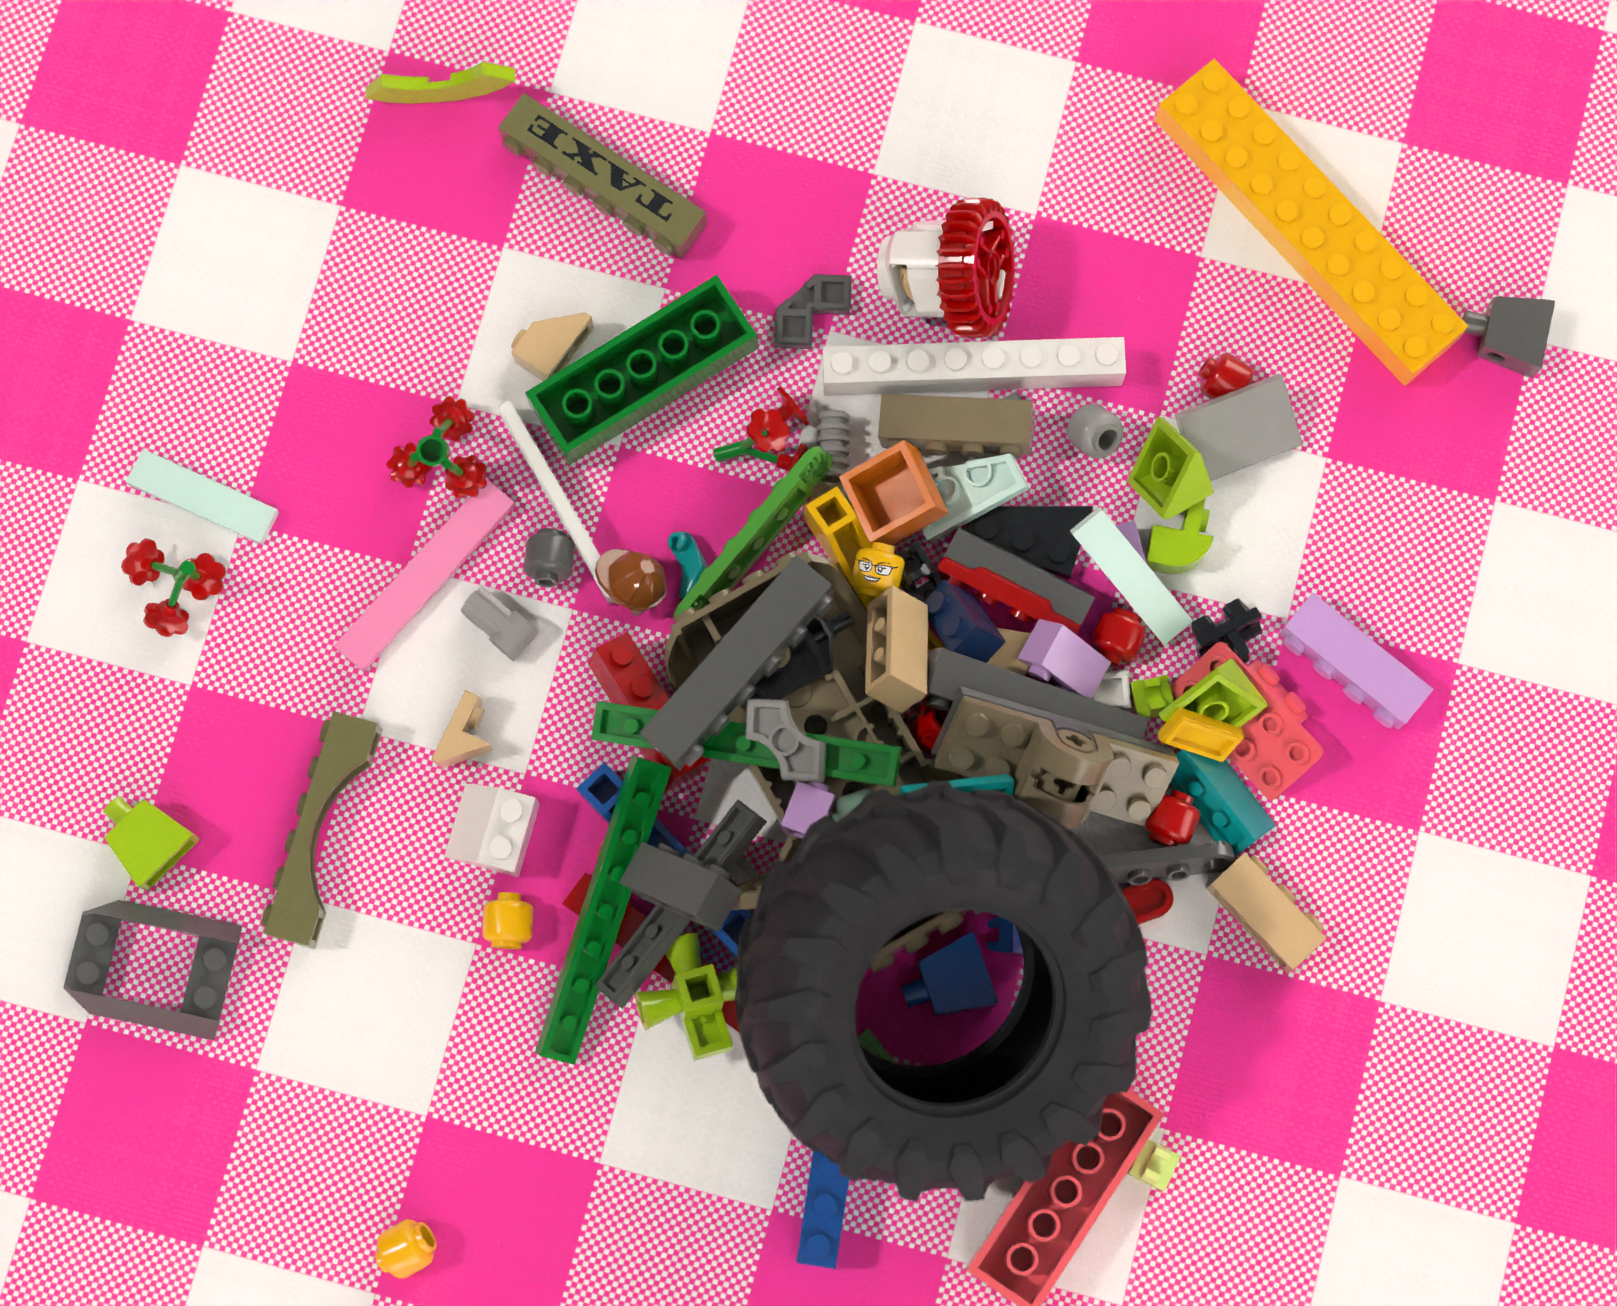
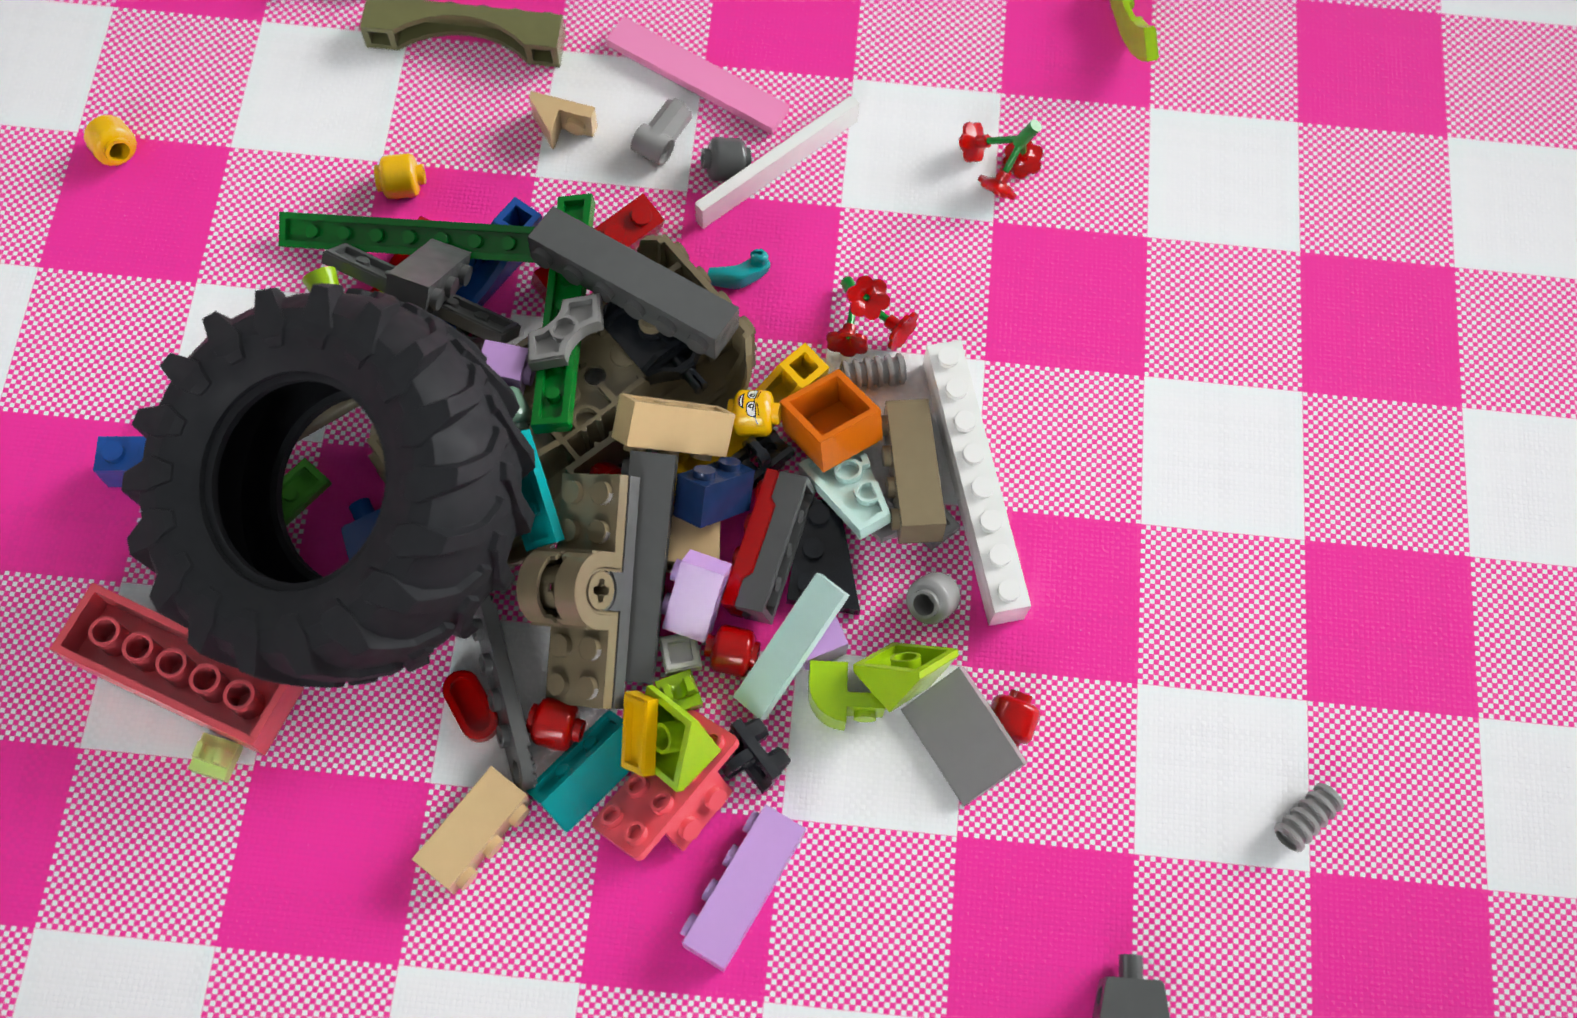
camera: 75 degrees right, 10 degrees down
(414, 462) = (789, 46): red plant -> none
(492, 828) = (478, 157): white slope -> none
(550, 344) = (918, 135): tan slope -> none
(593, 244) = (1020, 155): none -> red plant
(602, 176) = (1081, 152): olive brick -> none
(631, 579) = (714, 220): dark orange piece -> none
(642, 369) = (910, 203): green brick -> none
(760, 530) = (787, 319): bright green plate -> none
(818, 296) = (1015, 345): dark grey tile -> none
(953, 268) = (1063, 442): red piece -> none
(1310, 222) = (1194, 784): yellow brick -> none
(1357, 130) = (1309, 817): none -> light grey piece

